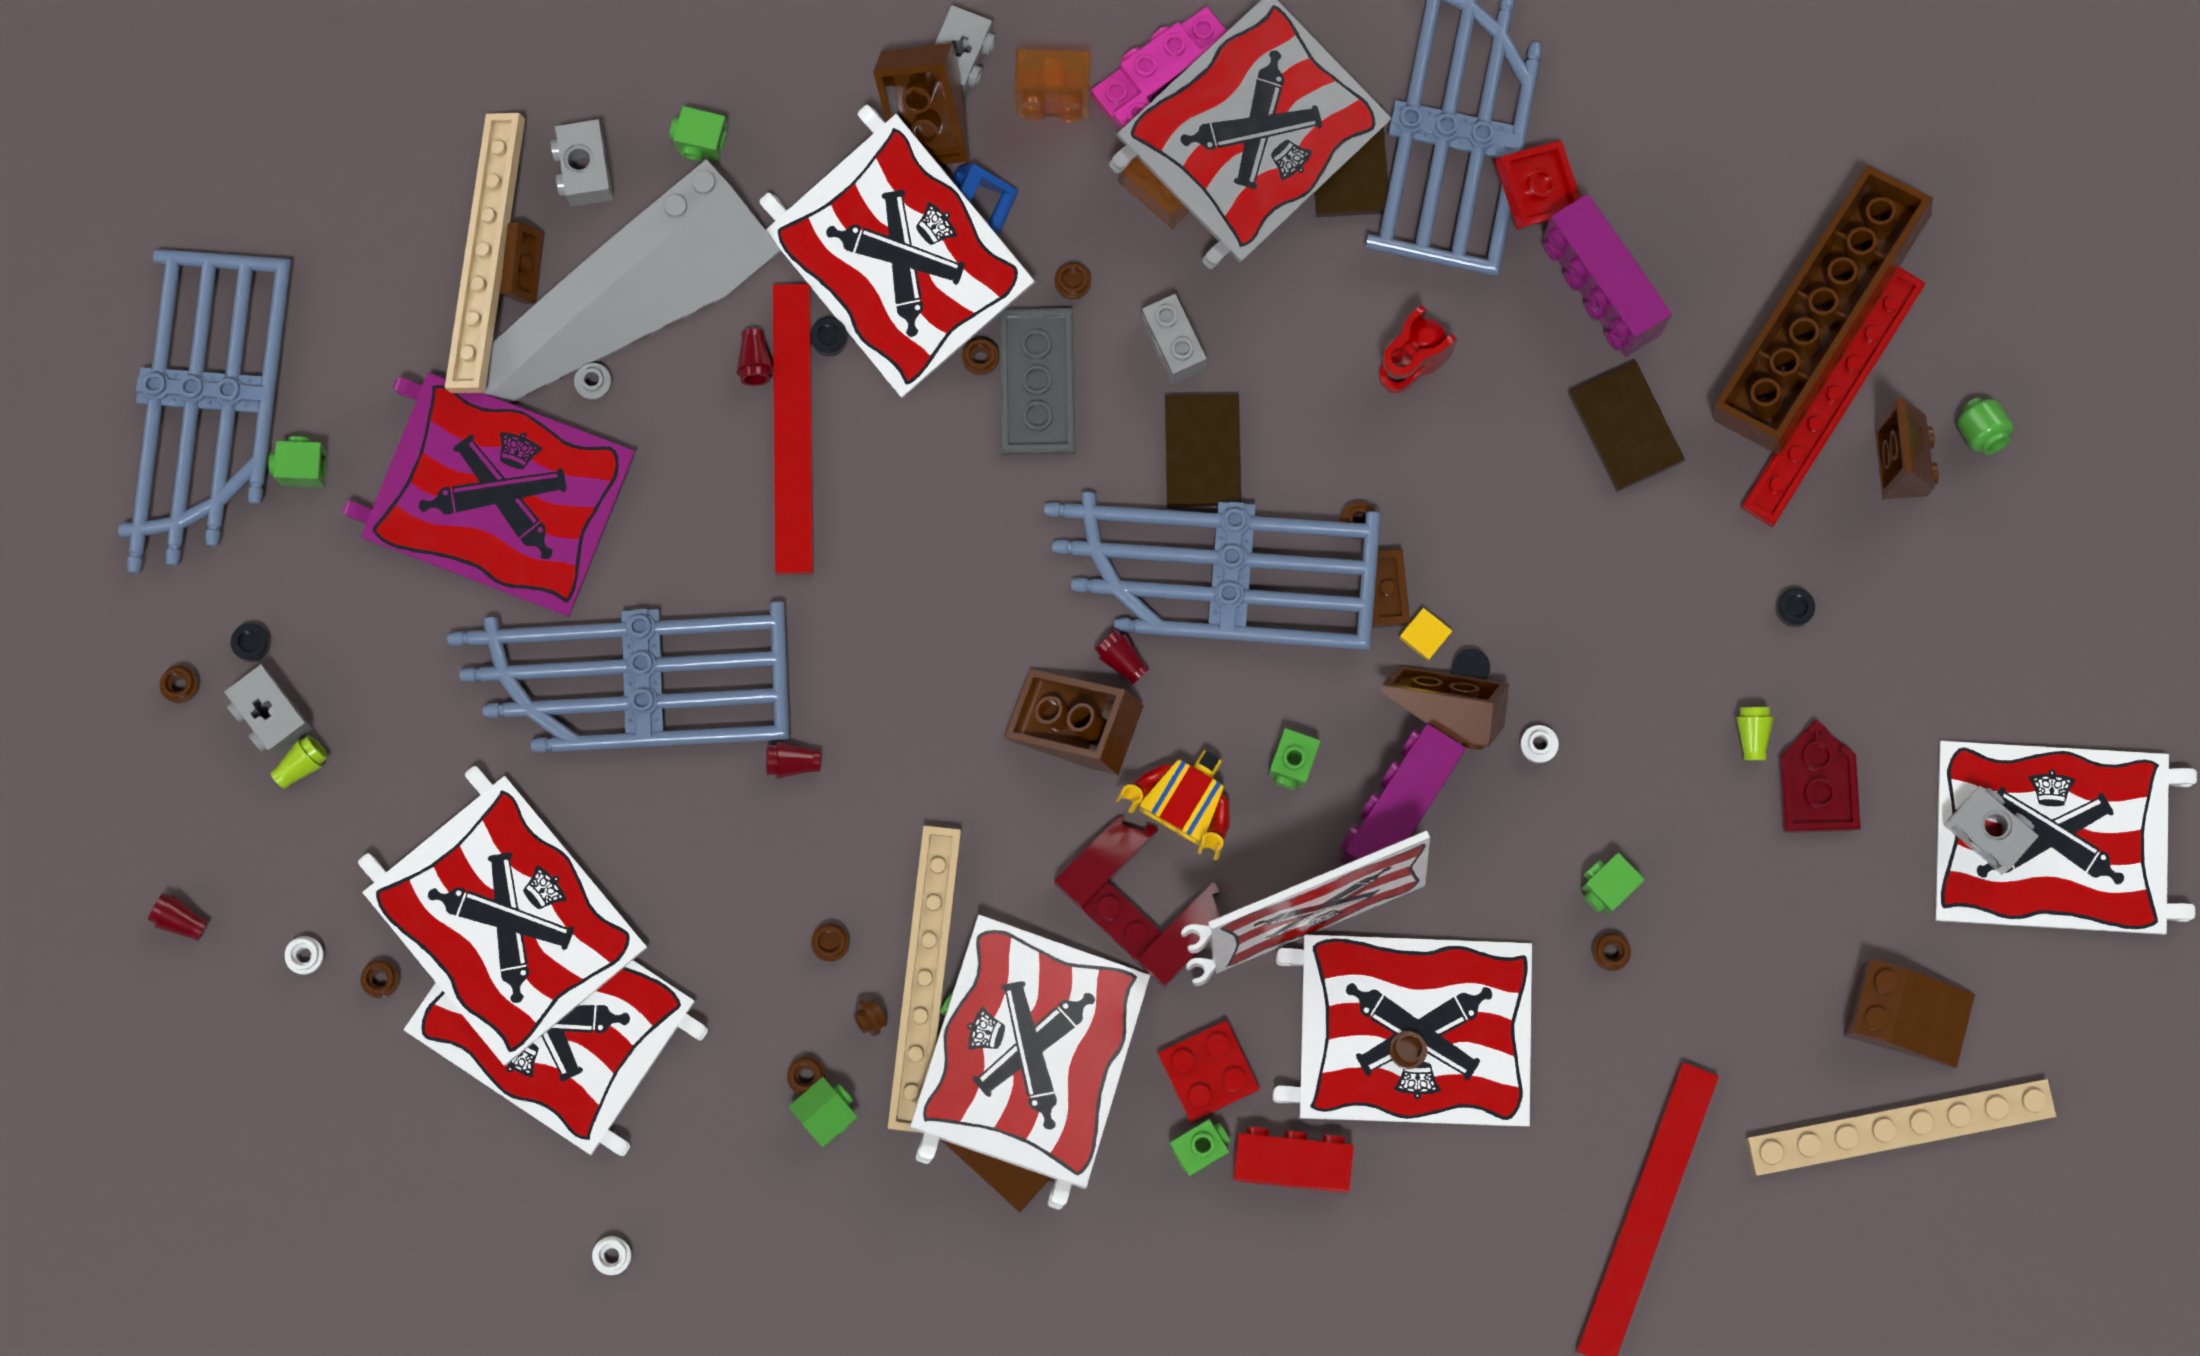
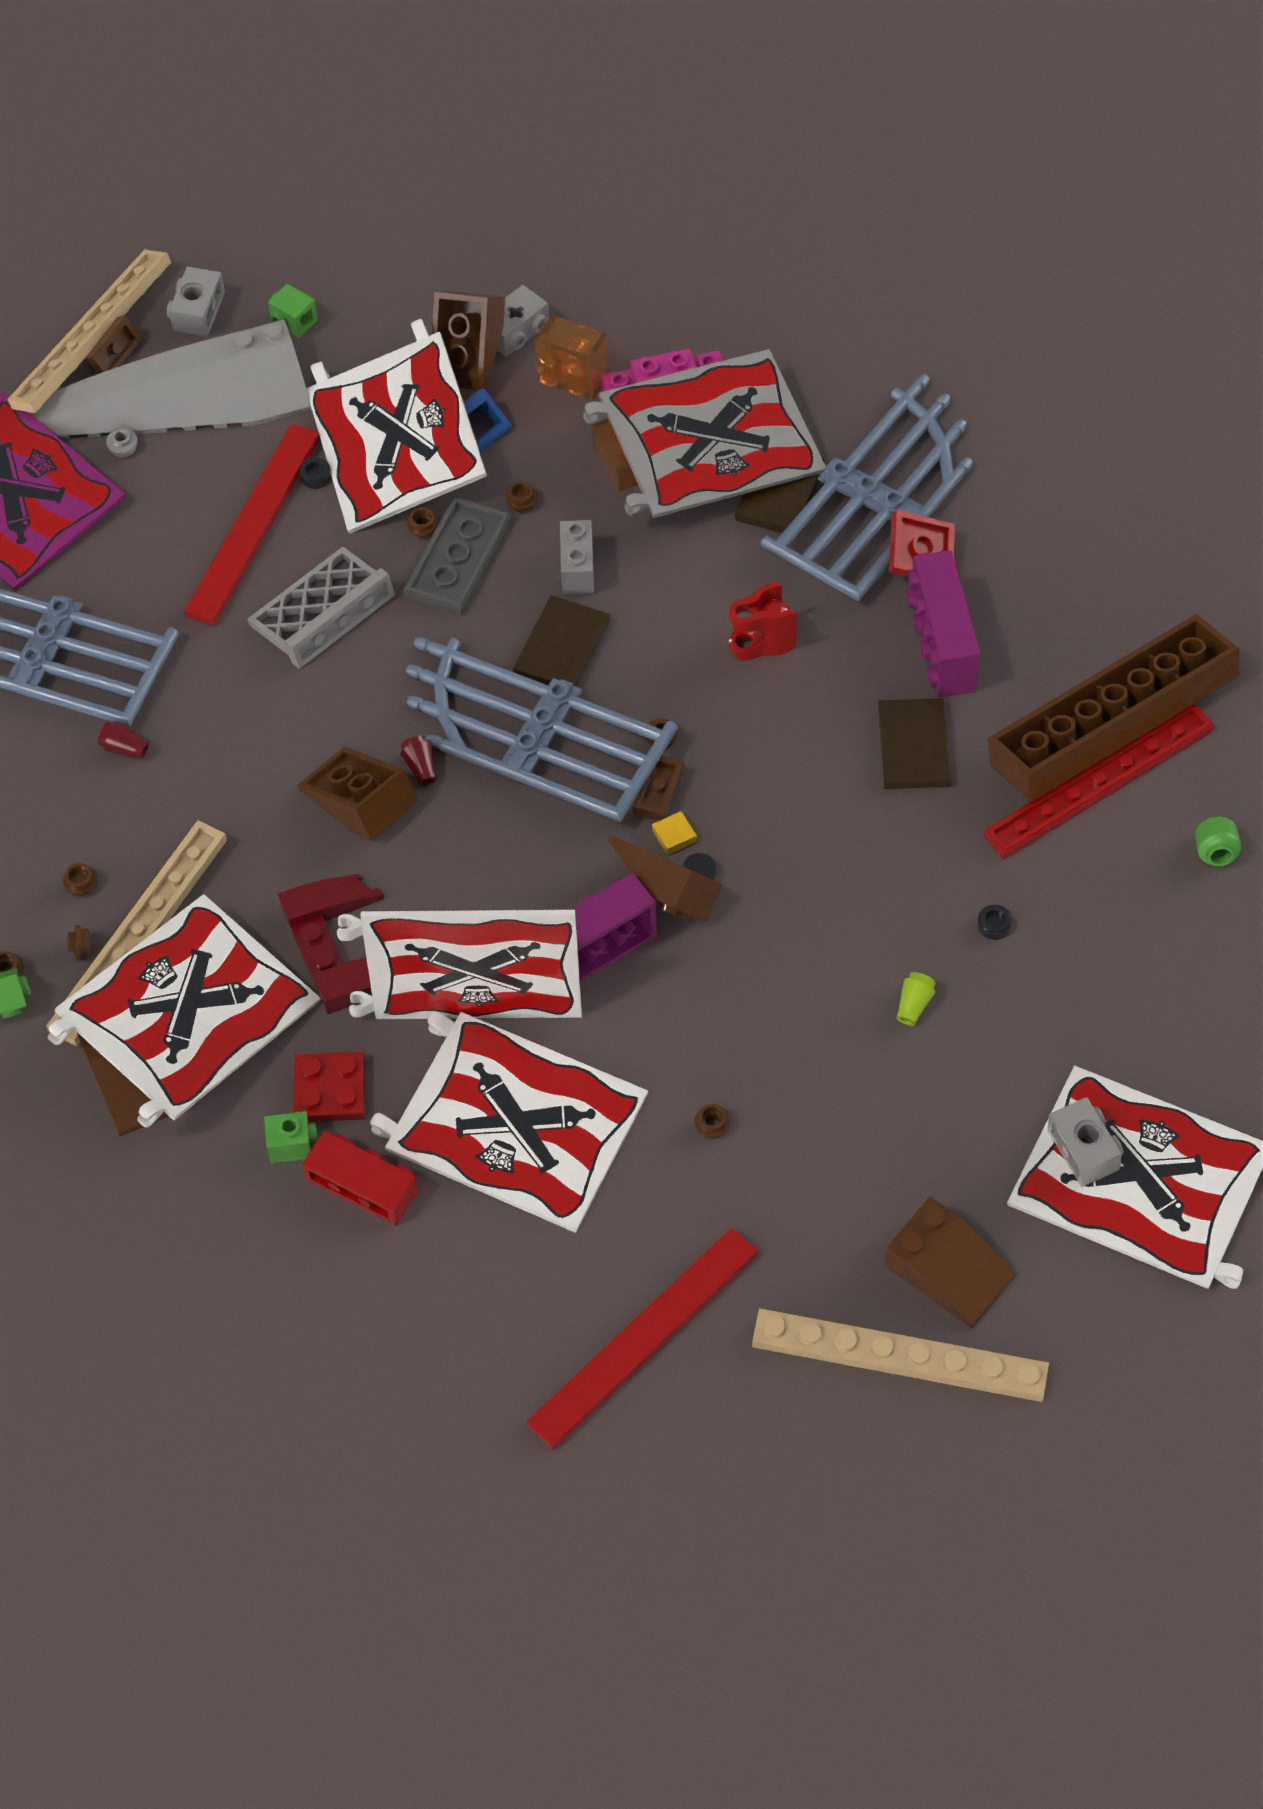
camera: 25 degrees right, 20 degrees down
(754, 361) = (248, 468): dark red cone -> none
(951, 508) = (335, 618): none -> light grey fence
(1184, 800) = (411, 872): torso -> none
(1293, 760) = (519, 880): bright green brick -> none
(1408, 1050) = (501, 1129): reddish brown plate -> none
(1533, 754) = (727, 952): white plate -> none
(1610, 884) = (736, 1067): bright green brick -> none
(1819, 784) = (952, 1060): dark red tile -> none
(1905, 452) = (1139, 829): reddish brown slope -> none

